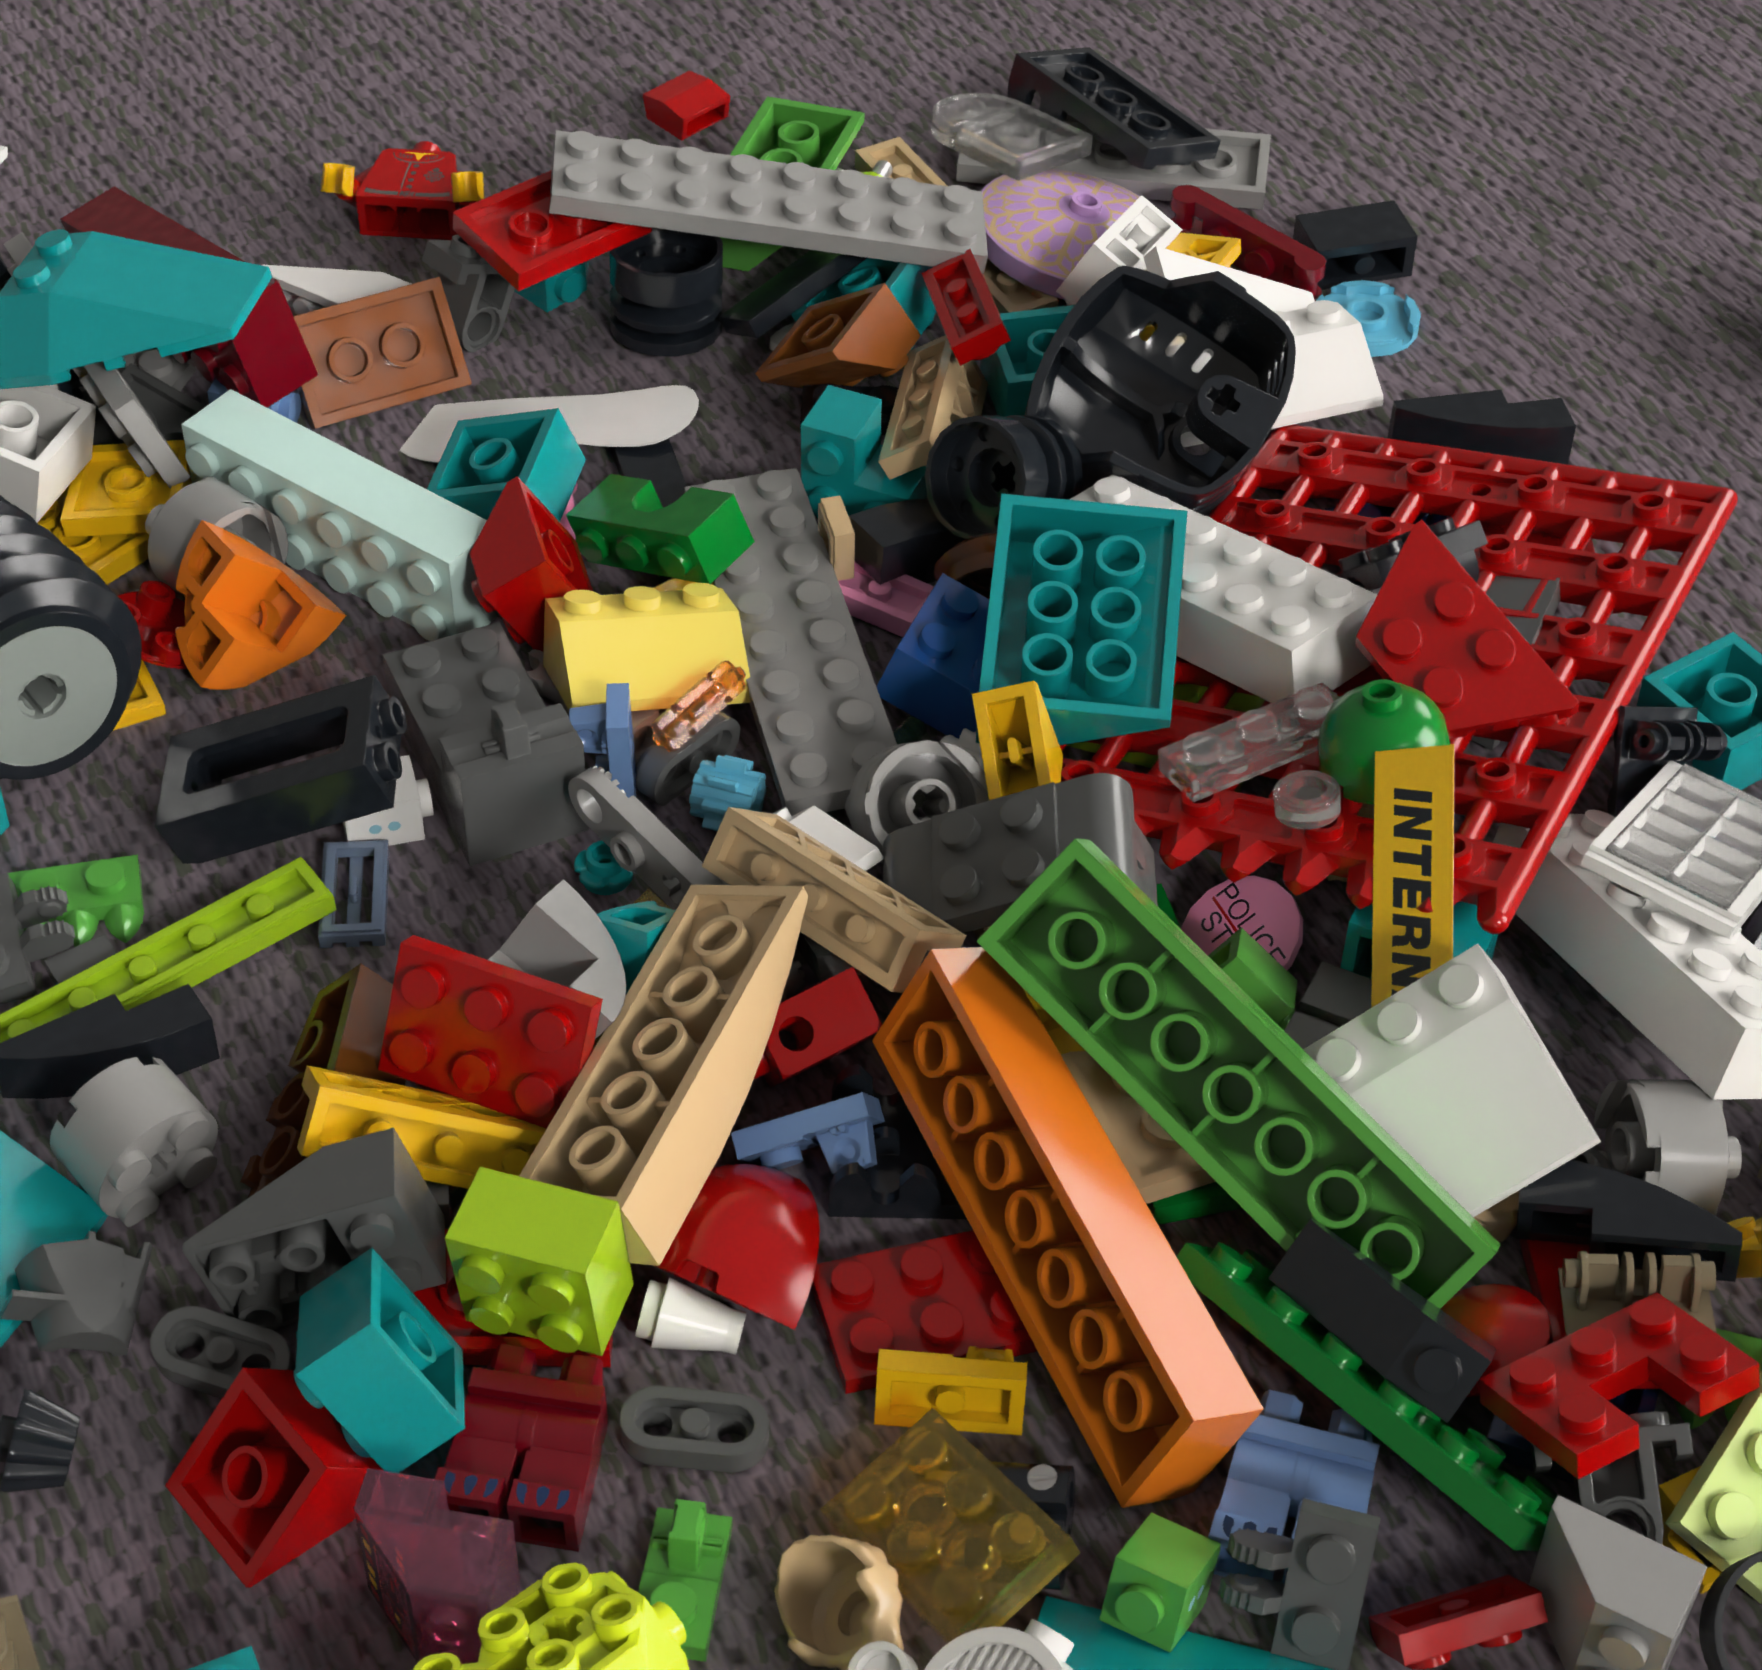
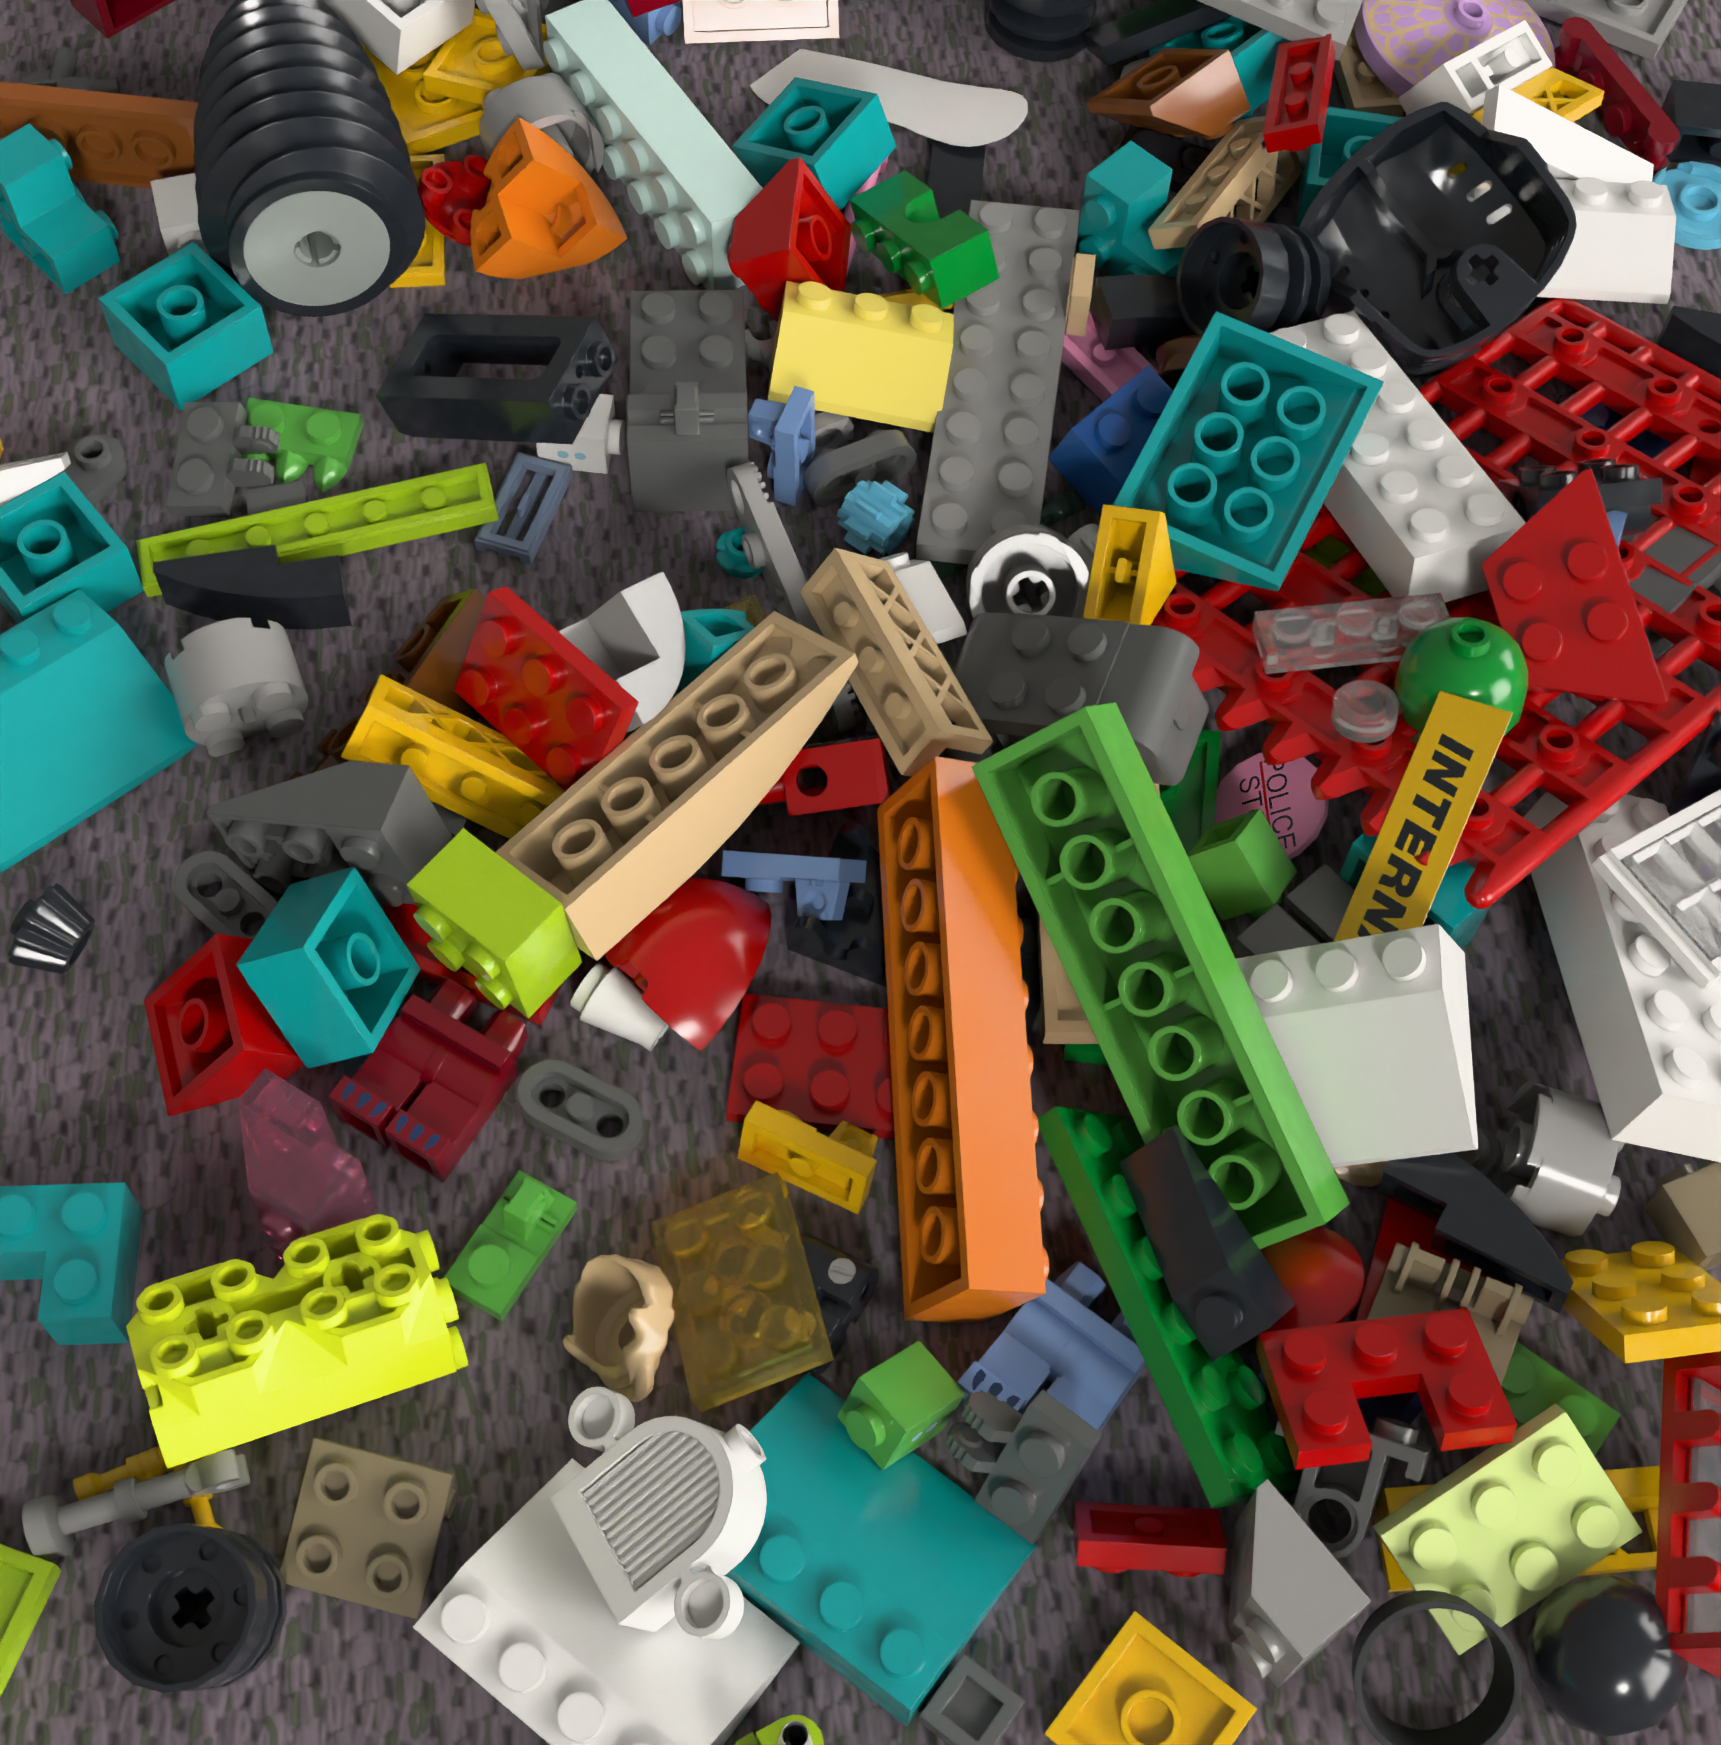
camera: 20 degrees right, 15 degrees up
(80, 1294) = (142, 811): dark grey piece -> none
(698, 706) = (878, 427): clear orange axle -> none

